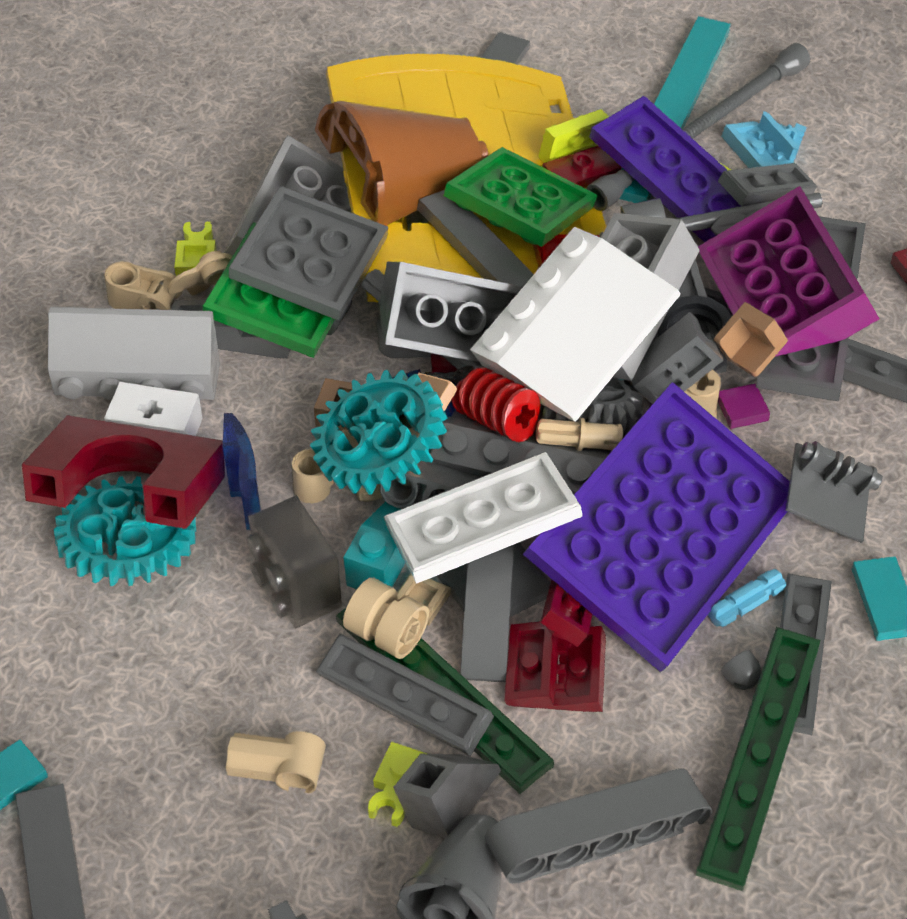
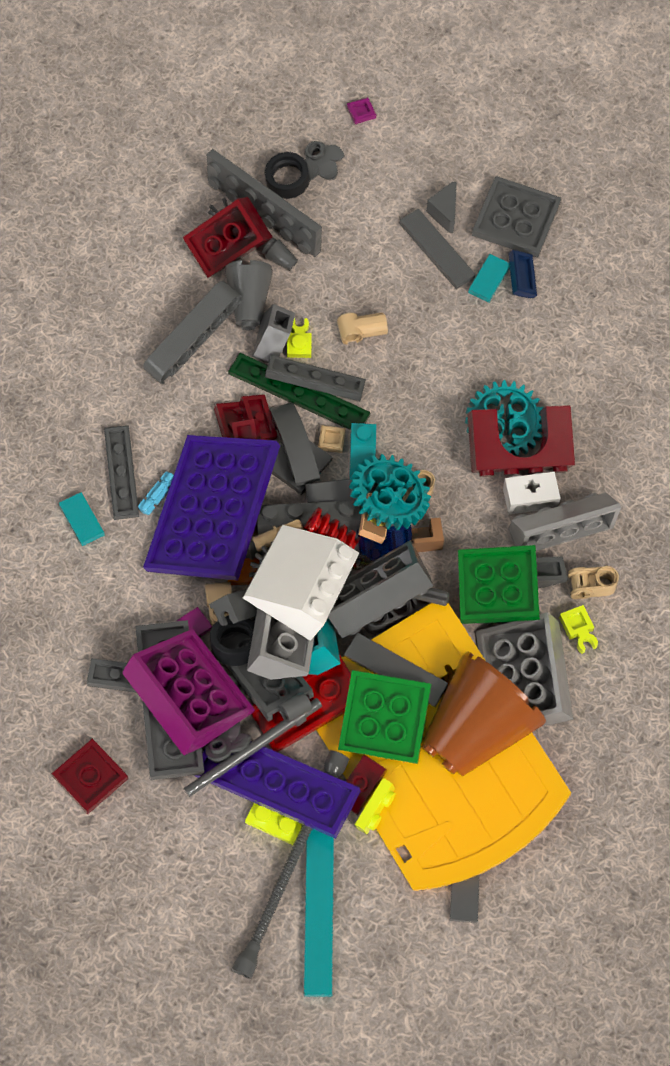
camera: 155 degrees right, 15 degrees up
(203, 275) = (555, 593): tan plate -> none
(240, 466) = (457, 463): clear blue slope -> none
(294, 562) = (401, 416): clear smoke brick -> none
(308, 252) = (490, 599): dark grey plate -> none
(379, 614) = (347, 404): tan wheel -> none
(482, 517) = (308, 454): white tile -> none
(743, 670) = (145, 446): dark grey hinge -> none
(750, 339) = (193, 629): medium nougat panel -> none
(758, 760) = (126, 404): dark green tile -> none
(764, 142) = (240, 867): medium azure slope -> none
(765, 183) = (226, 805): dark grey tile -> none
(831, 489) = (127, 571): dark grey hinge -> none

